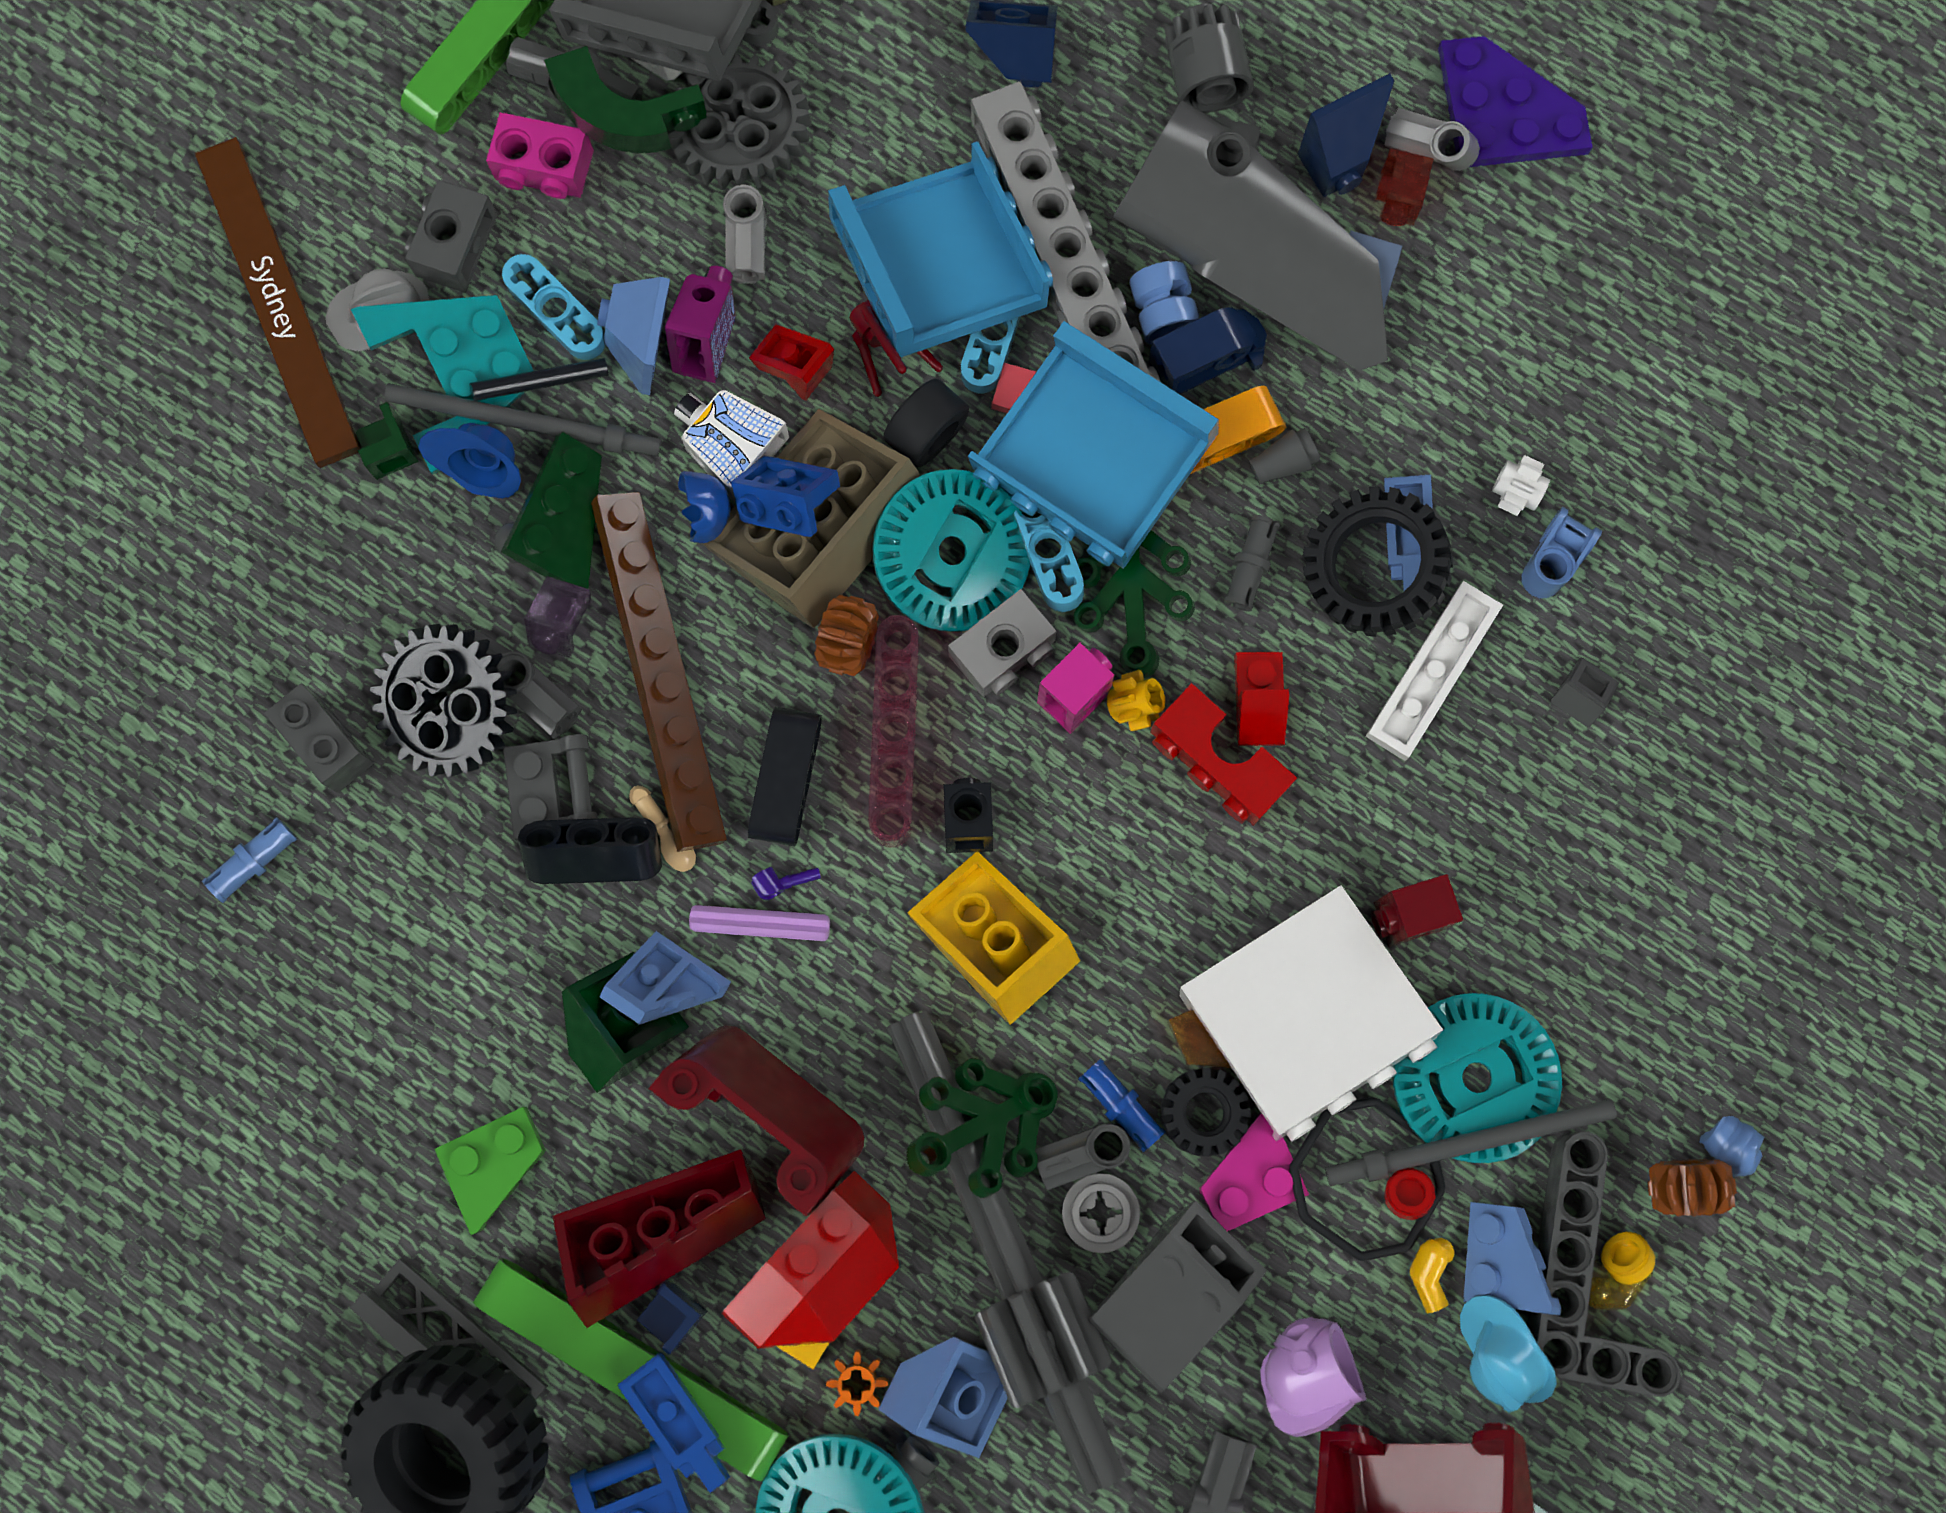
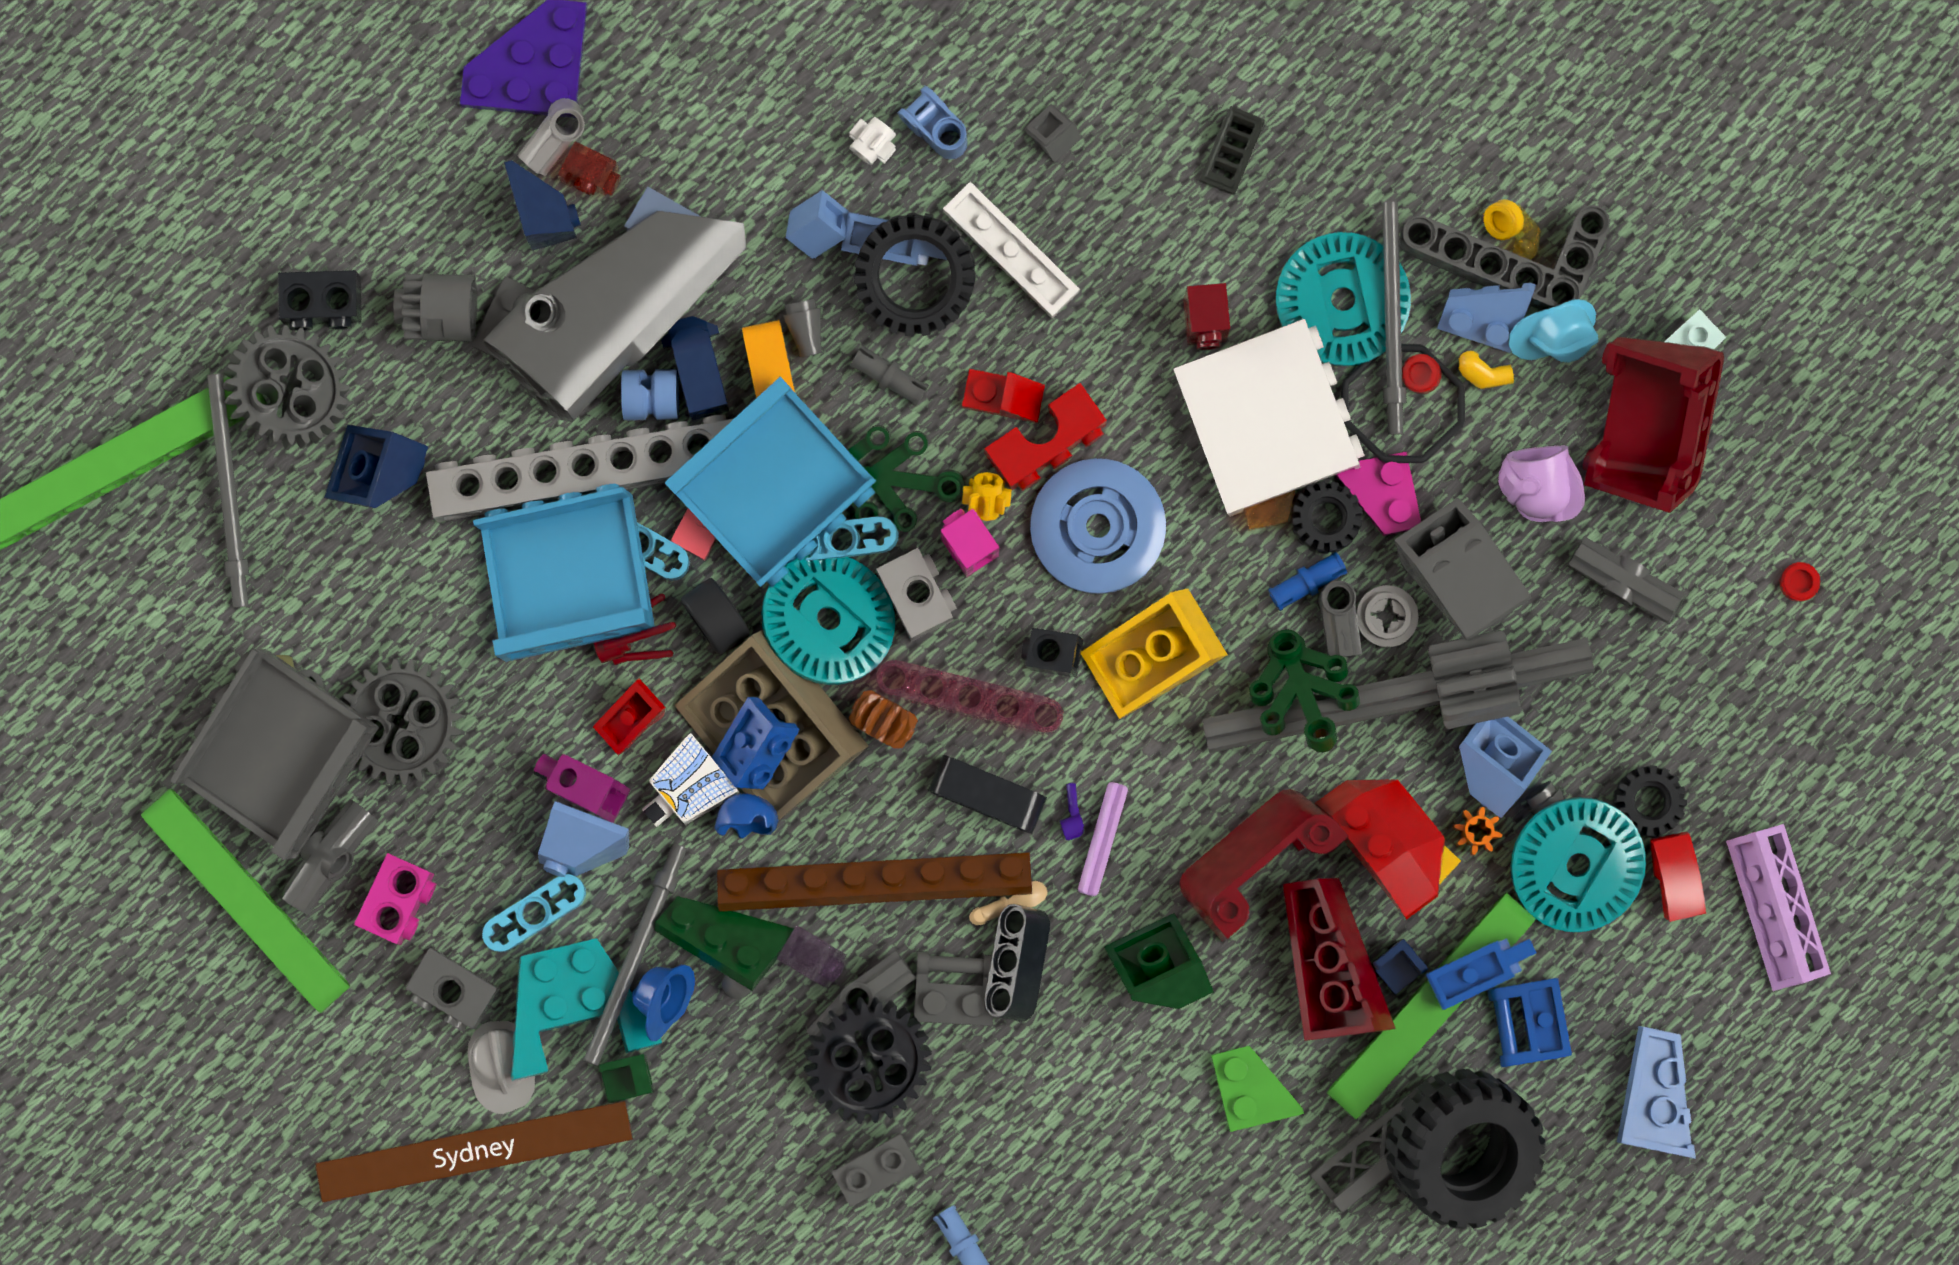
camera: 80 degrees left, 5 degrees up
(538, 379) = (601, 935): black bar -> none
(618, 121) = (377, 840): dark green arch -> none
(662, 982) = (1136, 923): medium blue wing -> none
(745, 235) = (512, 738): light grey piece -> none
(1145, 882) = (1134, 520): none -> medium blue piece
(1406, 446) = (817, 224): none -> medium blue panel
(1665, 909) = (1245, 119): none -> pearl dark grey slope
(1692, 1187) = (1461, 158): dark orange gear -> none
(1734, 1144) = (1436, 116): medium blue arm -> none

